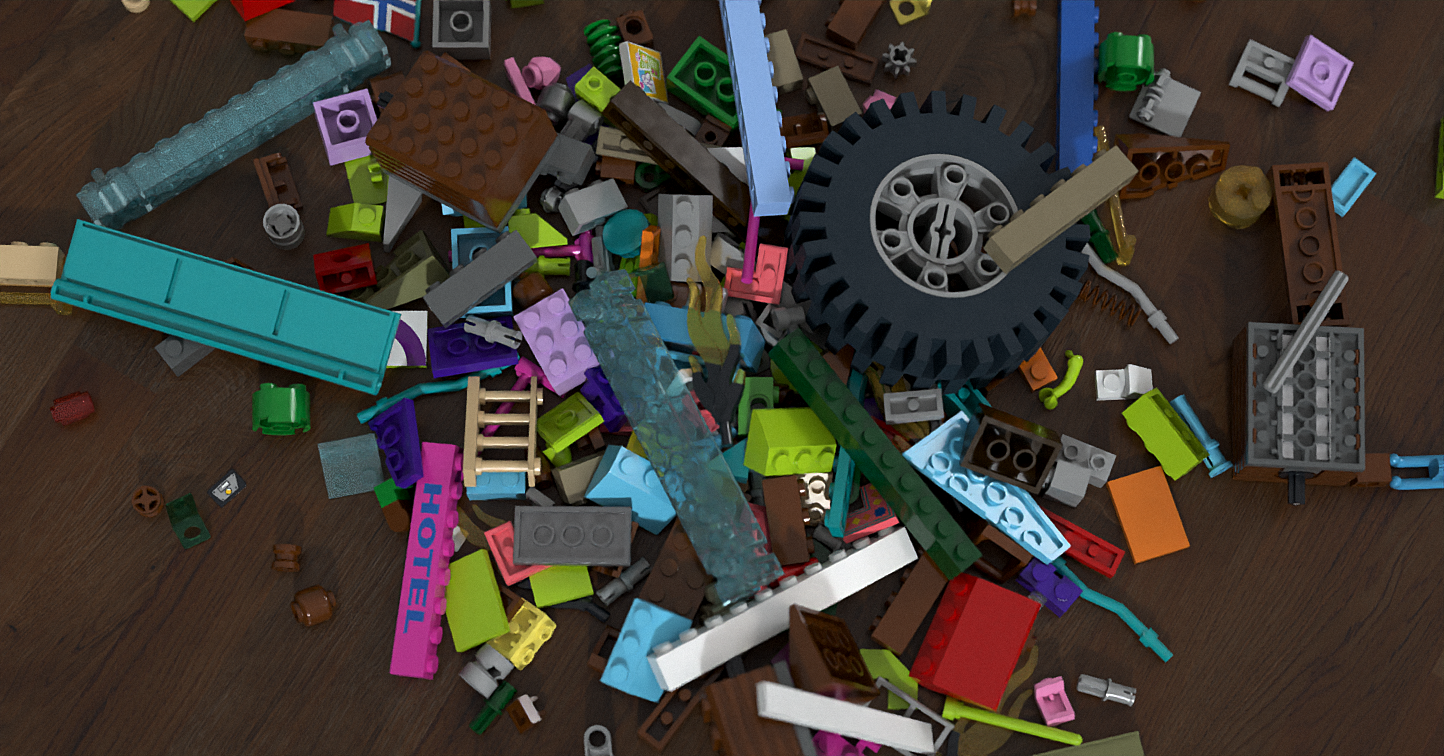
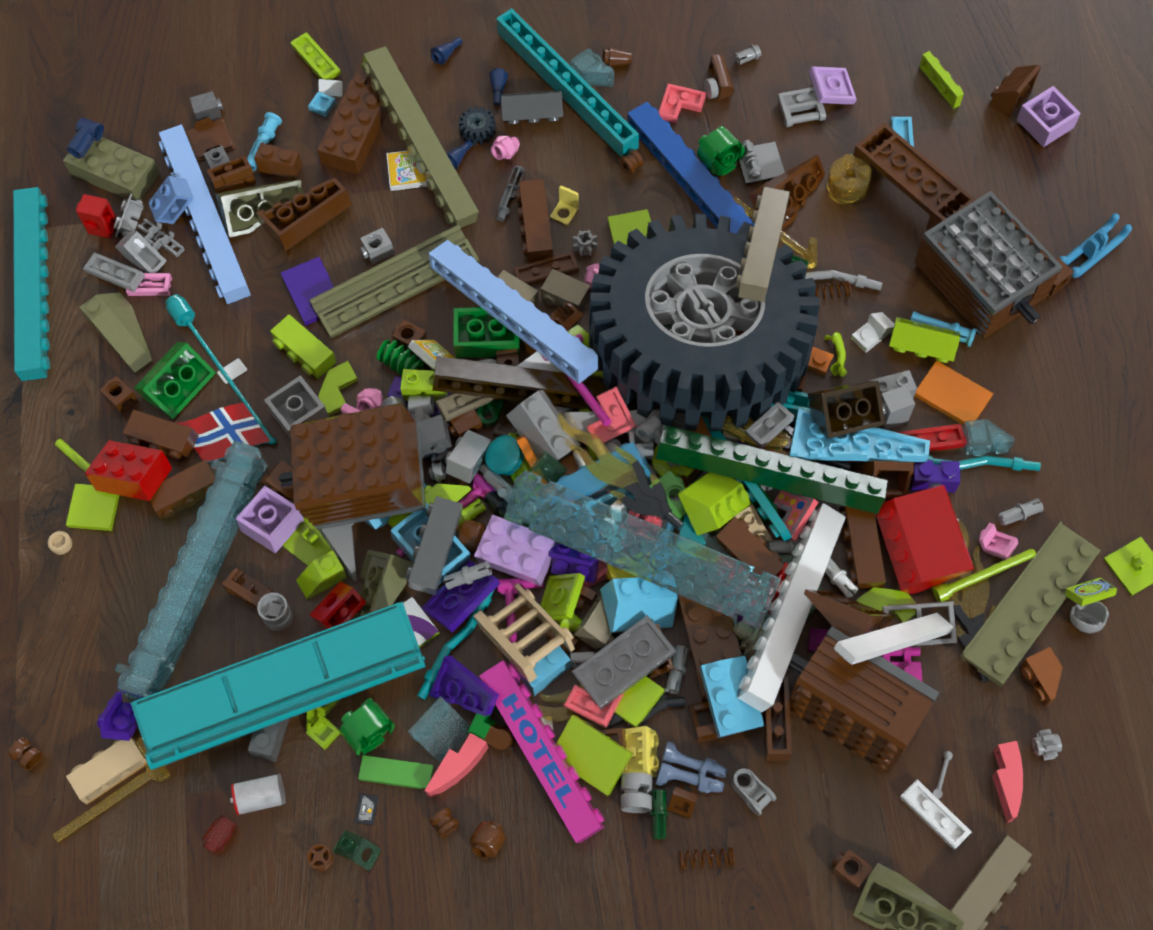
camera: 30 degrees left, 10 degrees down
(56, 224) = (117, 719): none -> dark purple bracket
(135, 397) = (258, 794): none -> flat silver piece
(242, 377) = (320, 728): none -> lime tile
(279, 474) = (395, 772): none -> bright green tile
(339, 512) = (456, 765): none -> coral slope
(527, 23) = (335, 380): none -> lime tile
(571, 697) = (709, 766): none -> sand blue piece
(861, 614) = (839, 578): none -> white axle
(959, 76) = (622, 224): none -> lime tile
(1138, 585) = (986, 437): none -> clear light blue slope
(1305, 332) = (961, 214): light grey axle -> none

